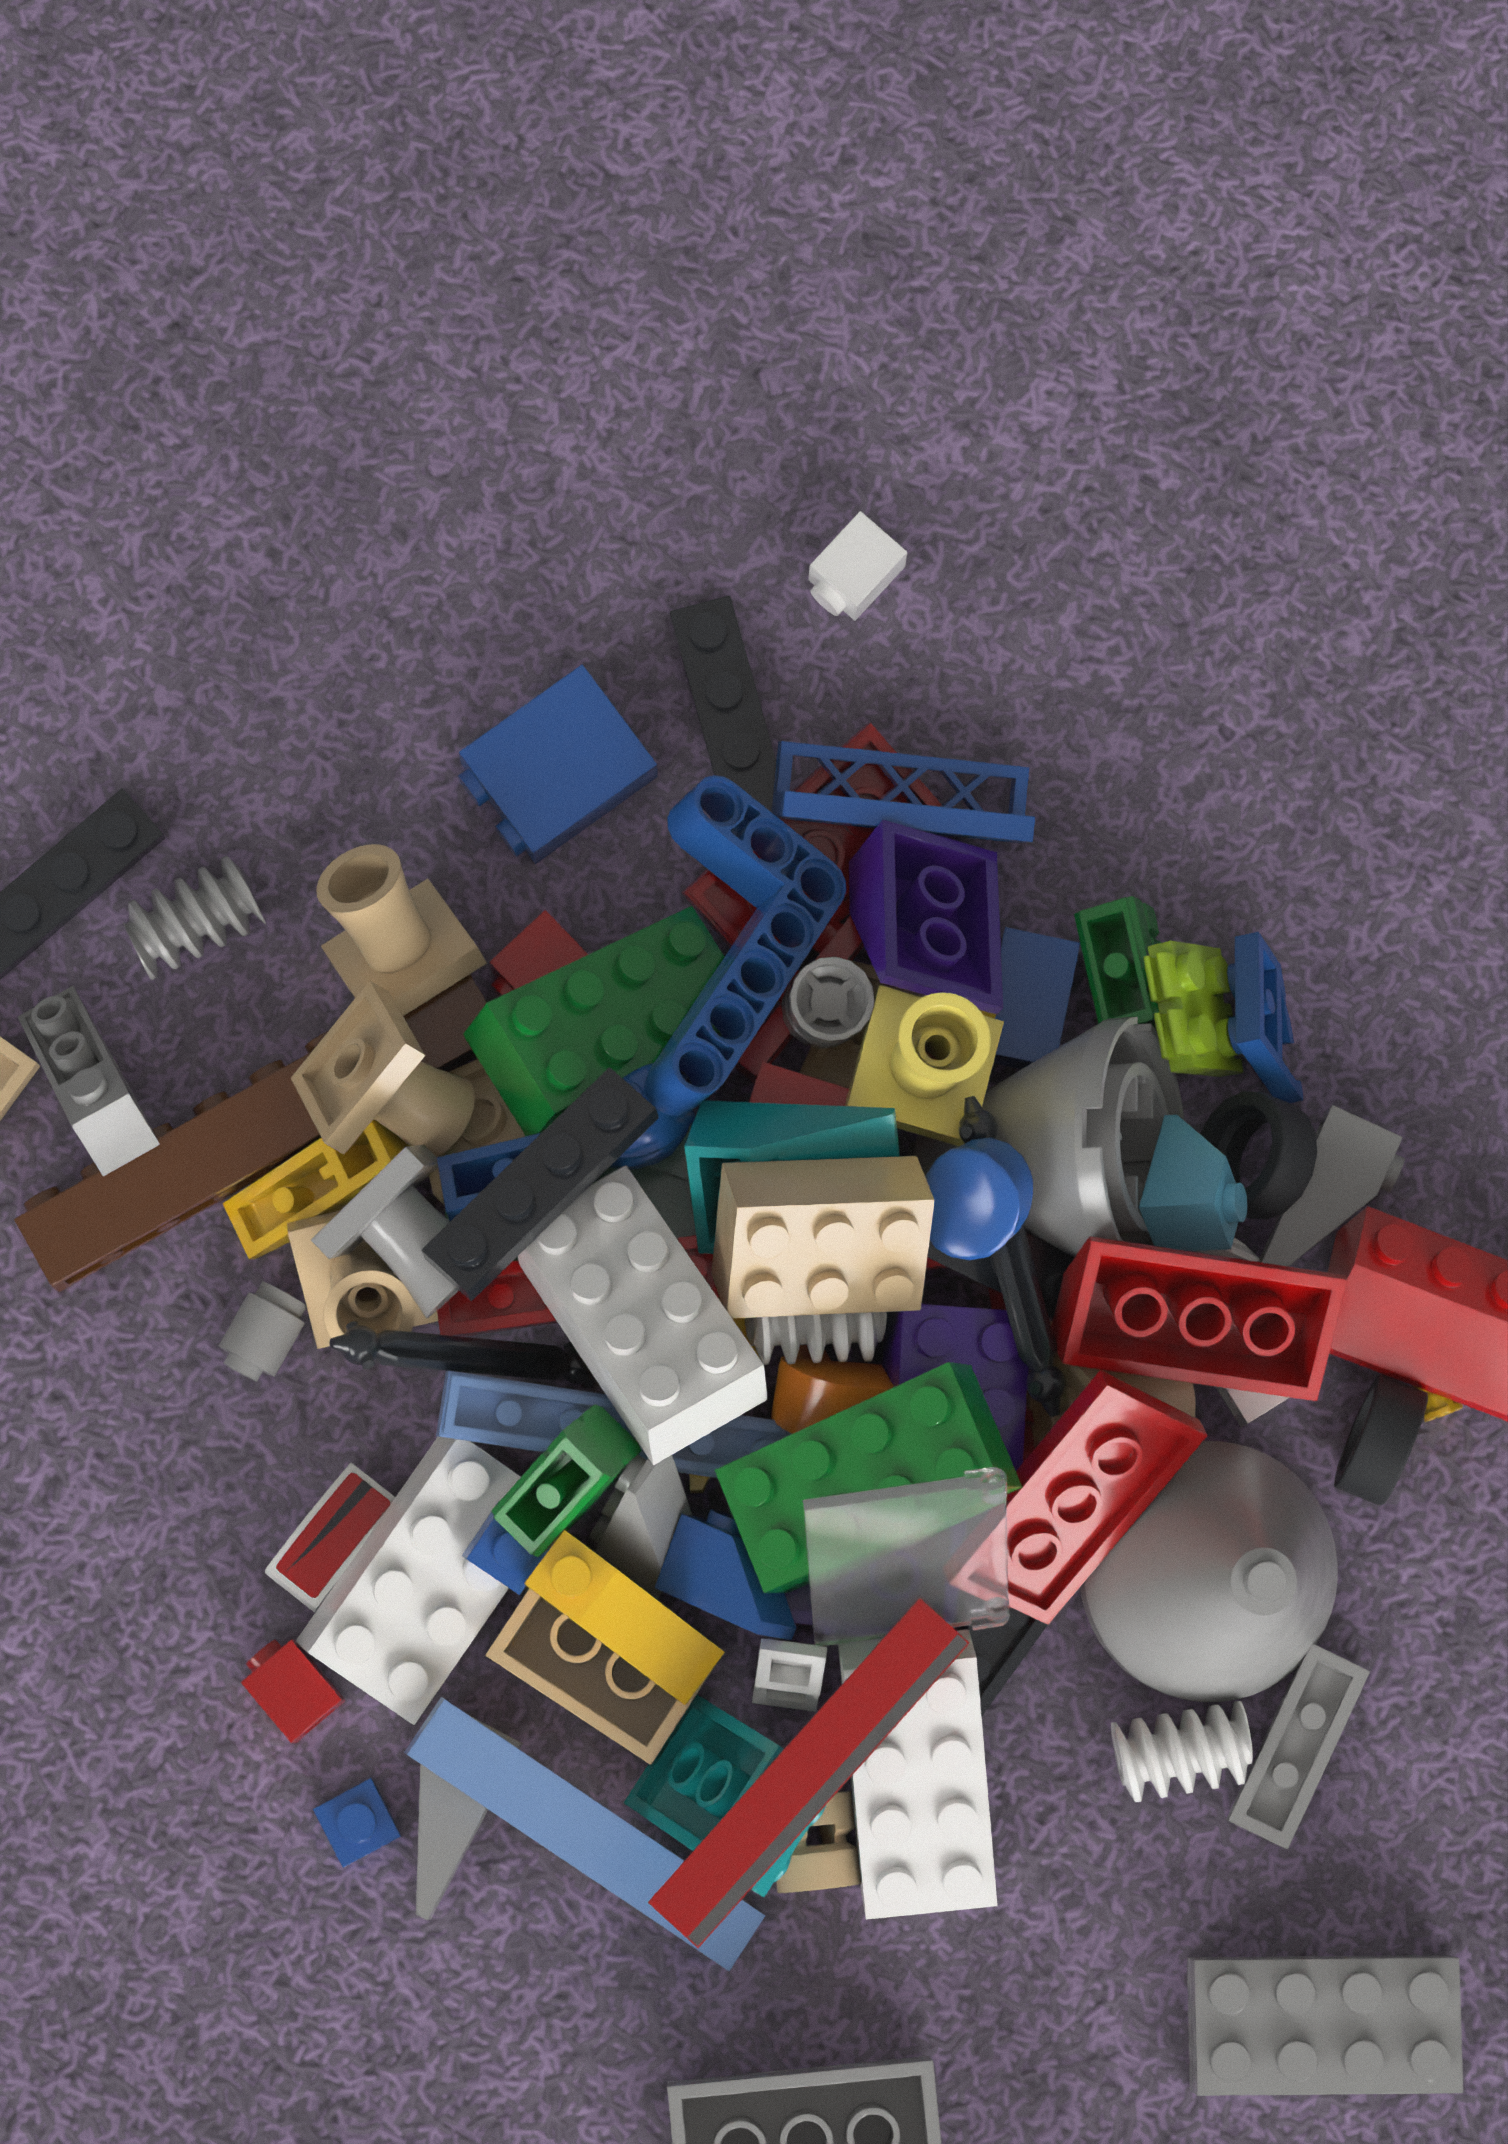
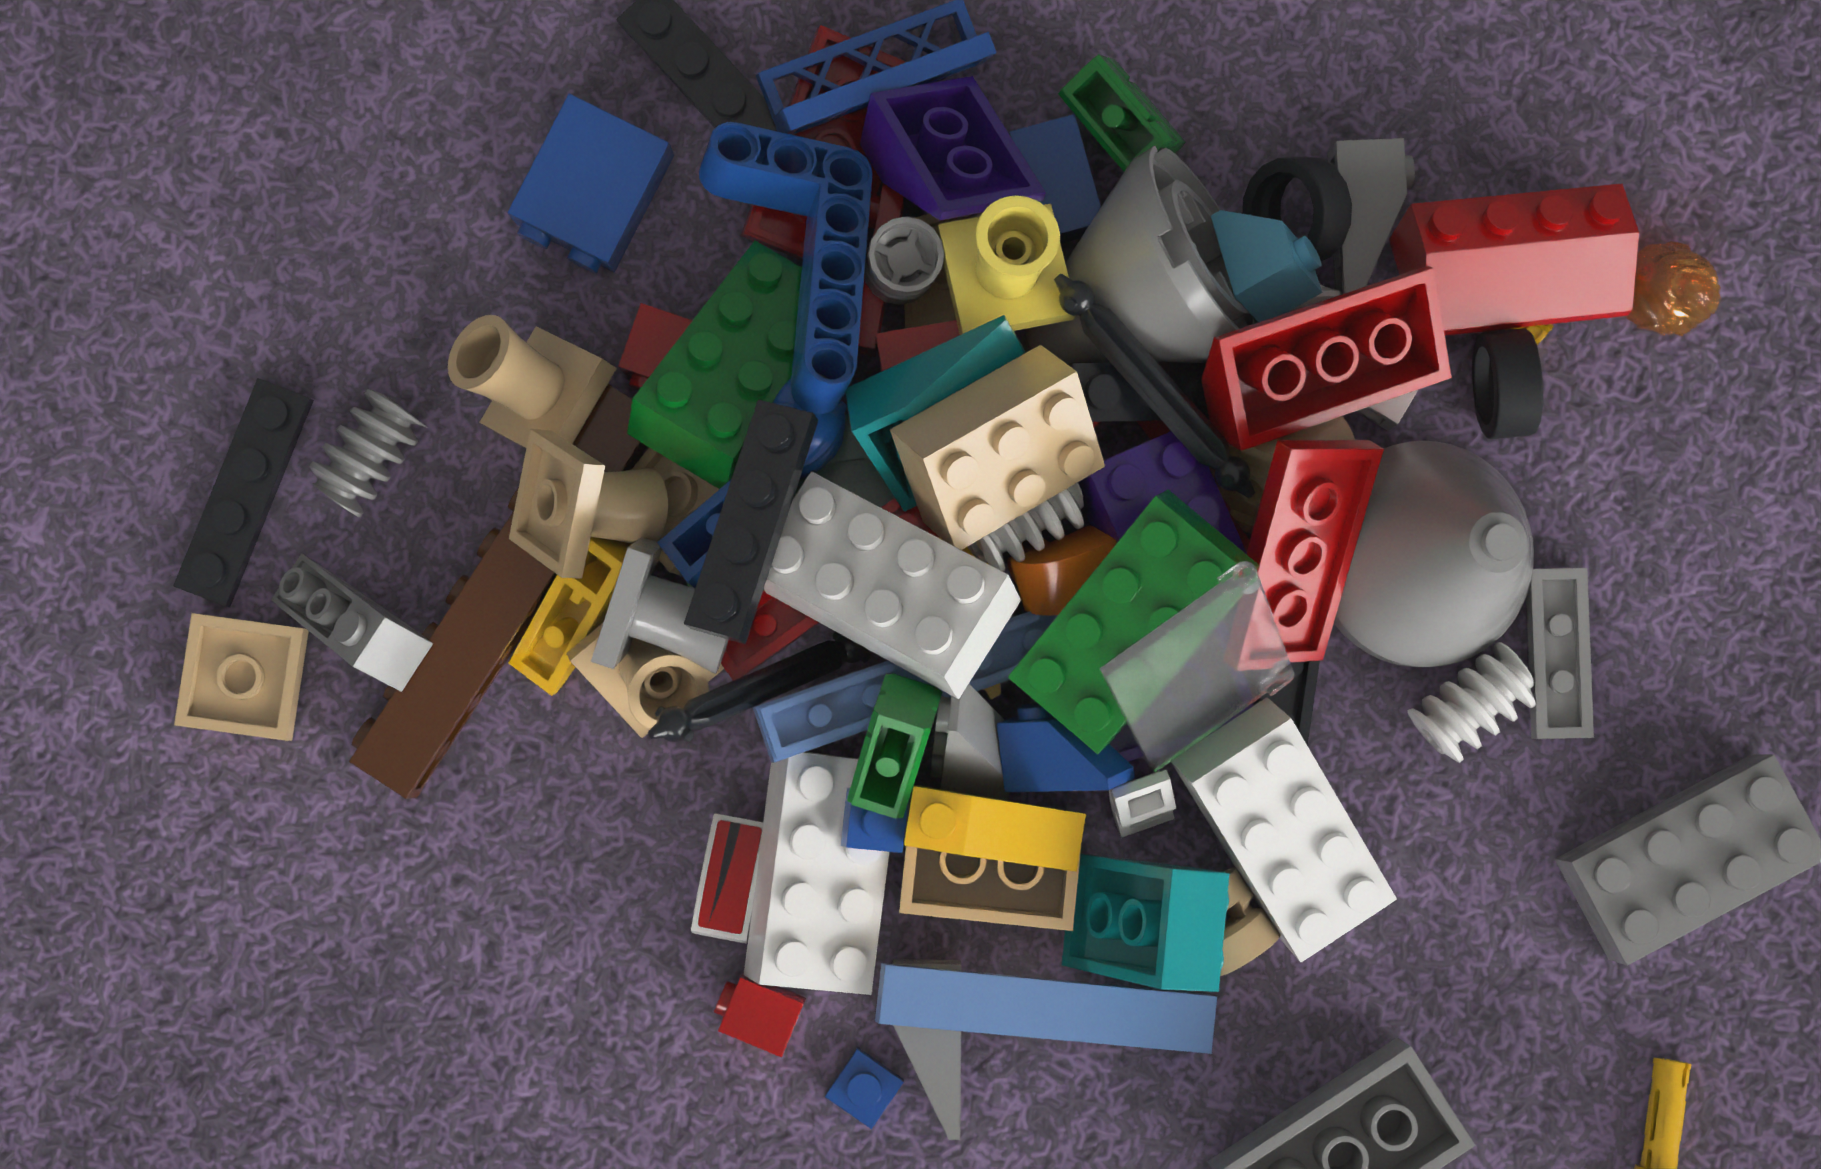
camera: 20 degrees left, 5 degrees up
(262, 1332) = (592, 747): light grey brick -> none
(808, 1773) = (1208, 880): red tile -> none
(979, 1198) = (1109, 350): blue piece -> none
(1192, 1016) = (1176, 103): lime plate -> none
(1261, 1015) = (1247, 106): blue wing -> none

